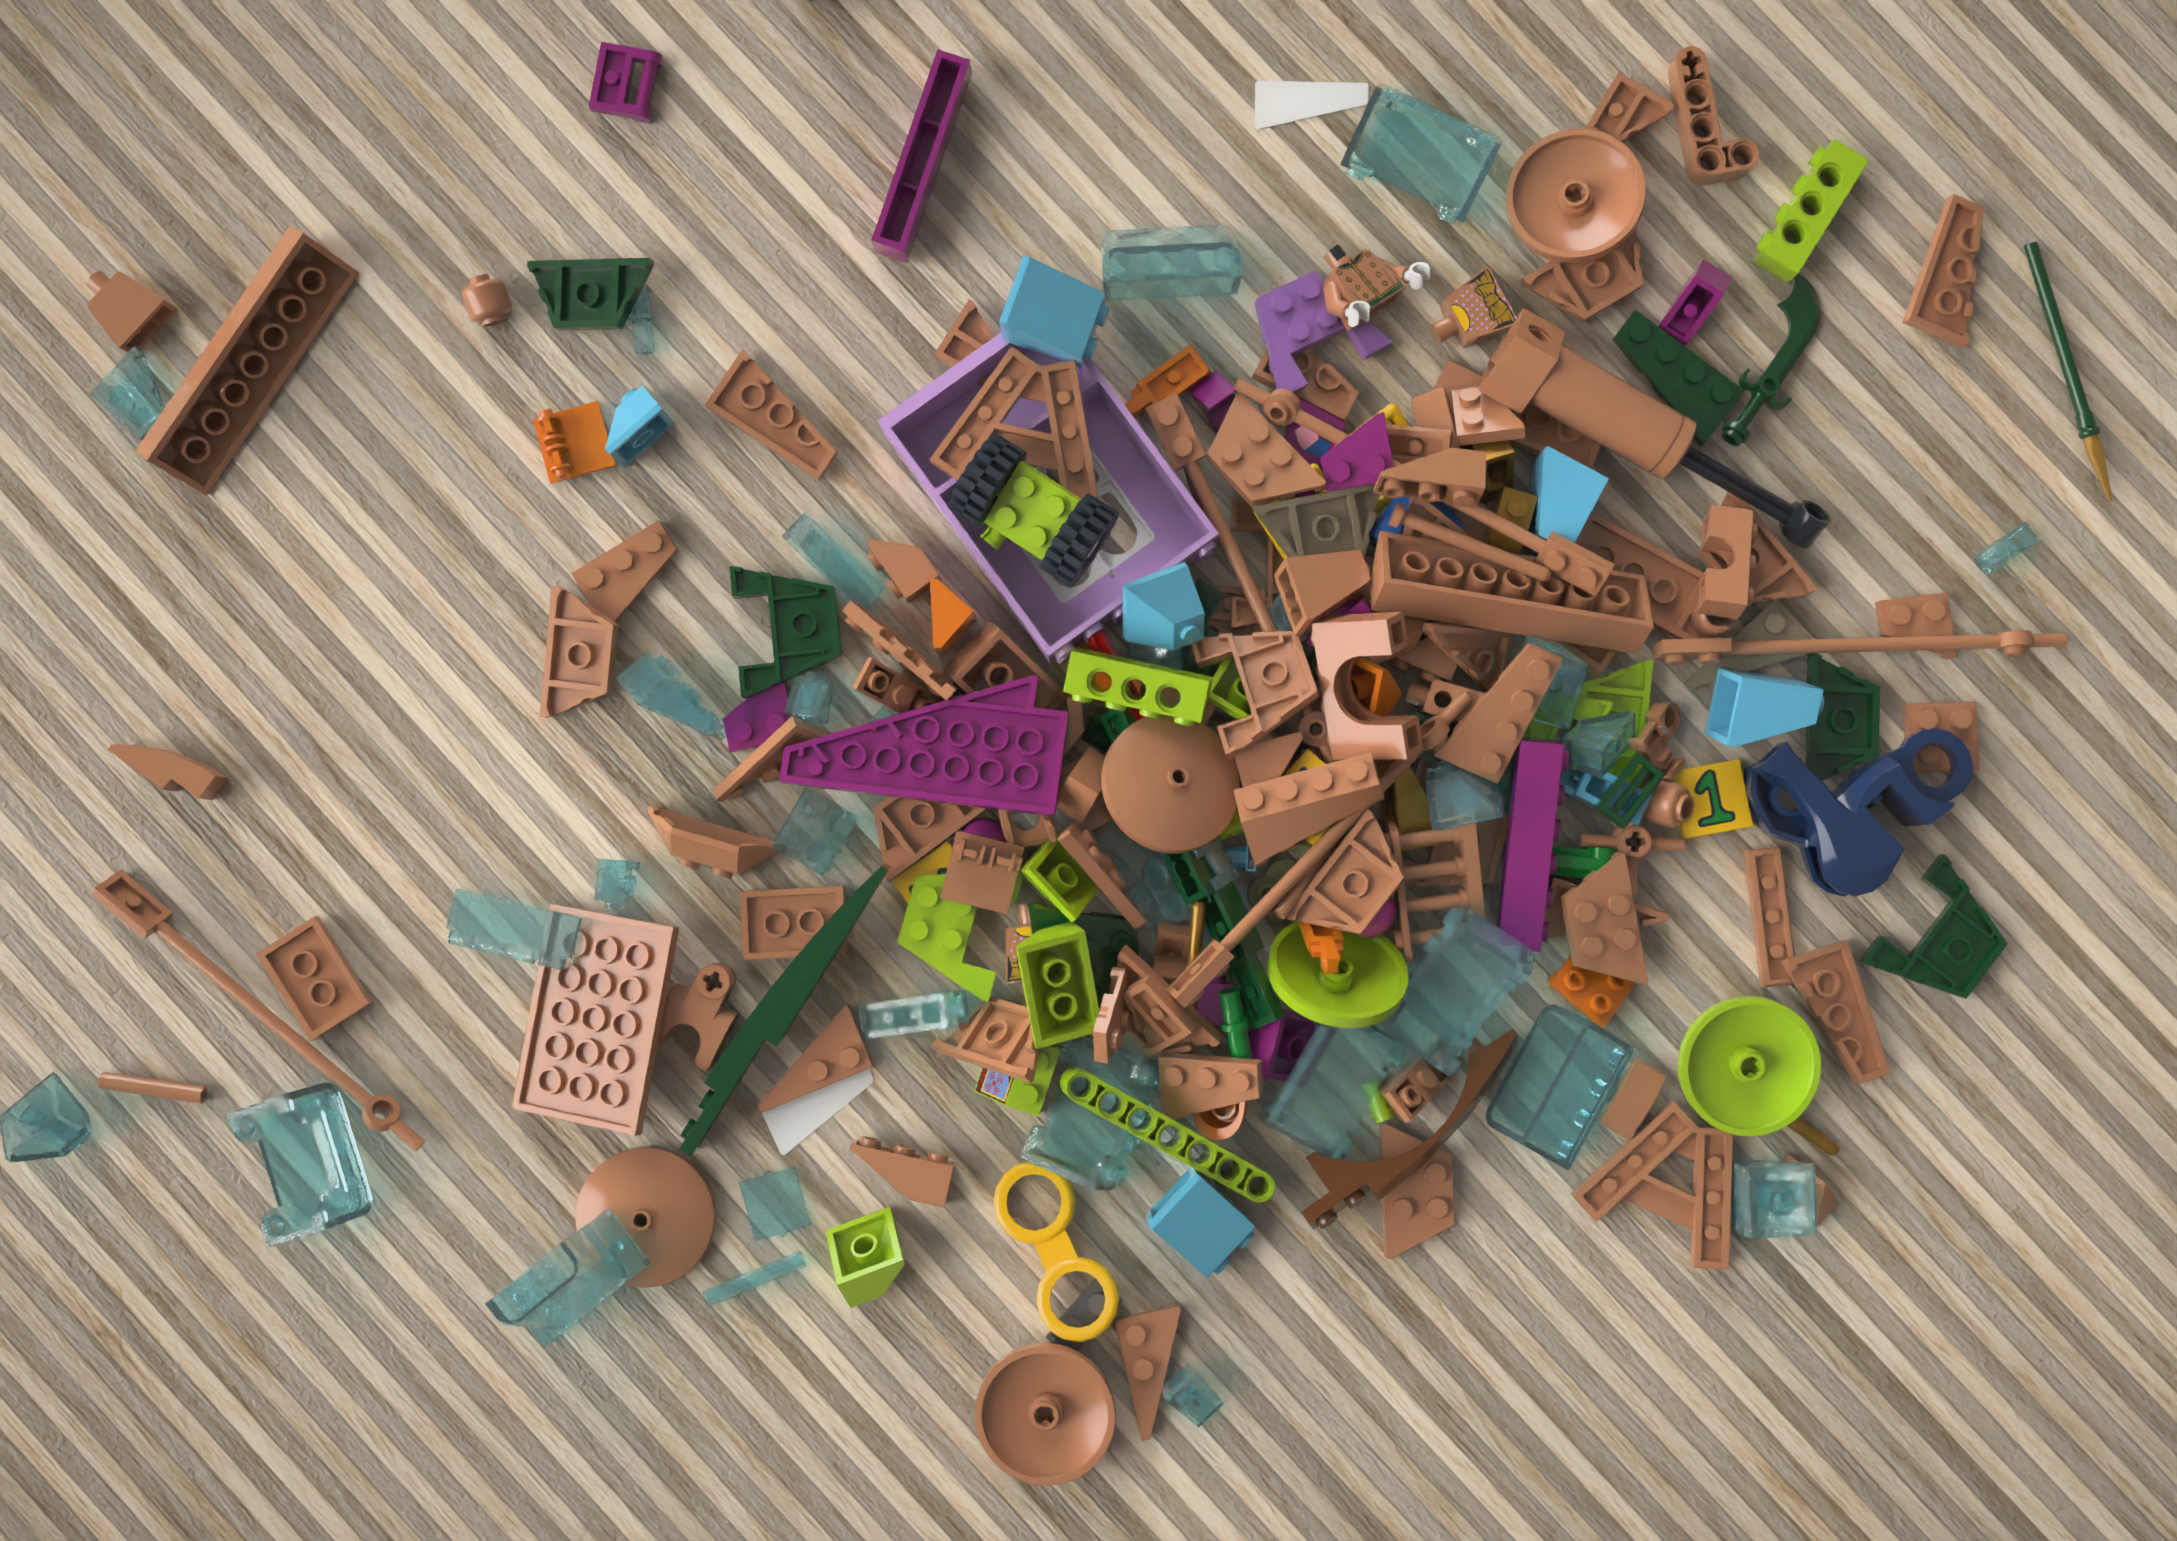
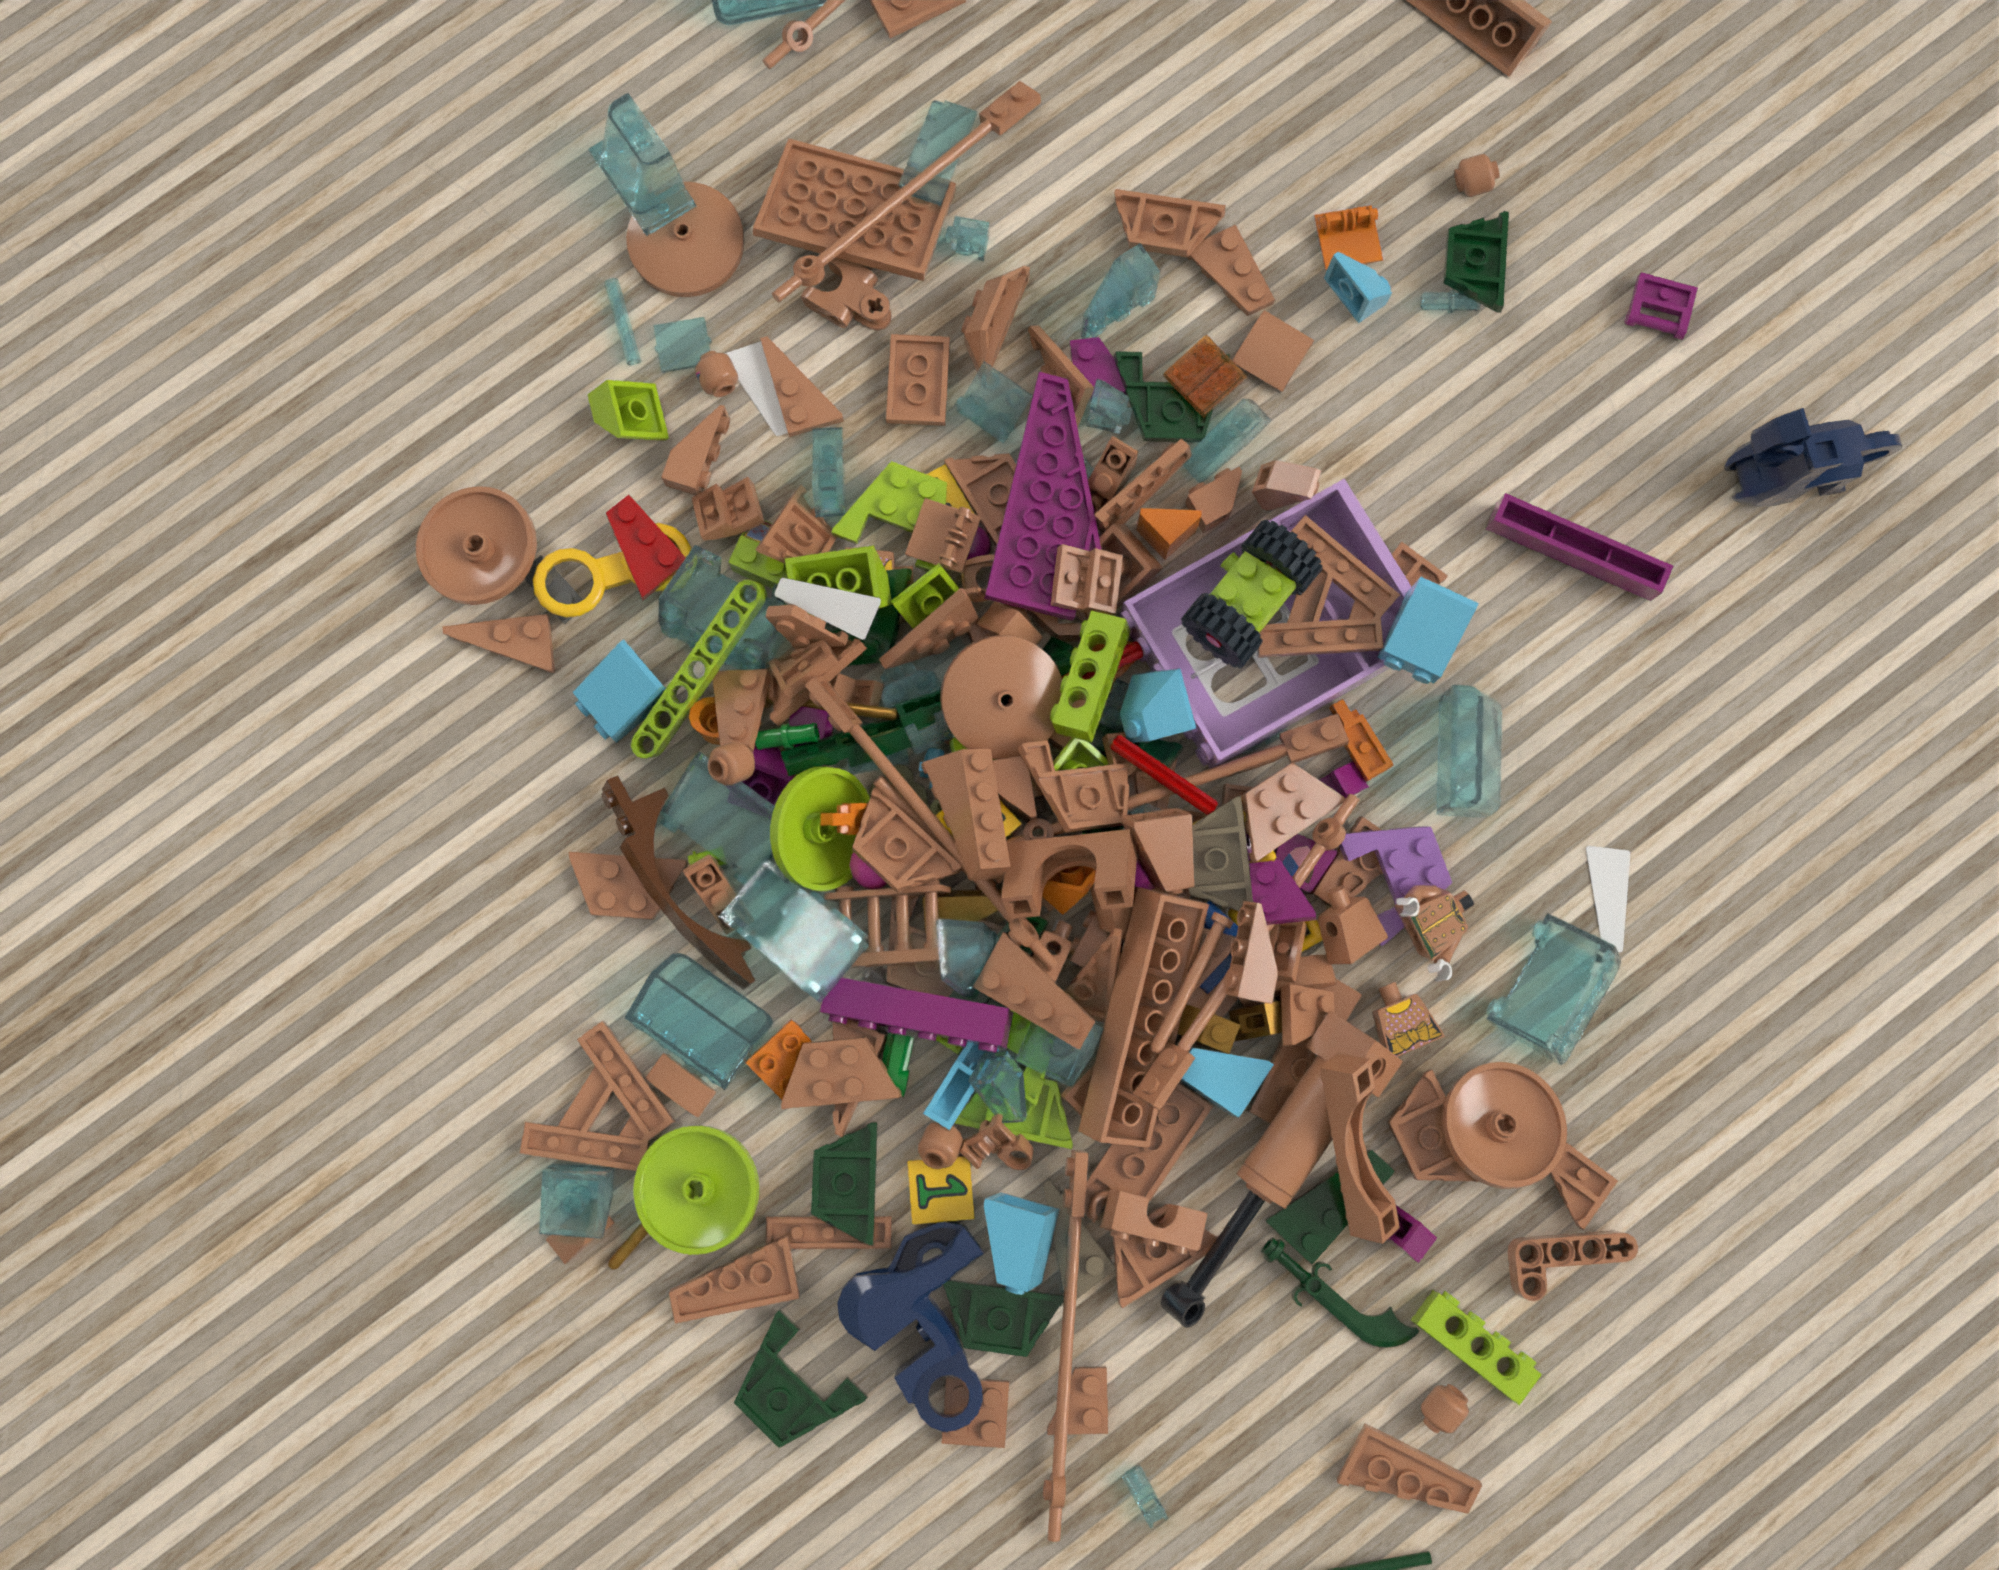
camera: 90 degrees right, 5 degrees down
(464, 864) = (996, 117): none -> nougat bar
(720, 517) = (1273, 350): none -> nougat slope
(760, 591) = (1205, 375): none -> clear orange tile
(763, 412) = (1359, 397): nougat wing -> none
(778, 1009) = (847, 359): dark green slope -> none
(810, 1158) = (716, 374): none -> nougat head
(888, 486) = (1284, 484): none -> nougat slope
(973, 1125) = (727, 511): none -> nougat slope
(1024, 701) = (1086, 580): none -> nougat slope
(1026, 1216) = (645, 547): none -> red wing
(1088, 978) = (838, 607): none -> white sticker
(1191, 1395) = (474, 671): clear light blue slope -> none
(1238, 594) = (1163, 775): none -> red axle
(1281, 1081) = (731, 763): none -> nougat head
(1382, 377) = (1349, 927): none -> nougat torso
(1611, 814) = (973, 1126): dark green tile -> none
(1645, 844) = (894, 1108): nougat bar -> none
(1680, 334) = (1368, 1204): none -> nougat arch
(1718, 902) = (847, 1183): none -> dark green wing
(1879, 238) = (1444, 1409): none -> nougat head

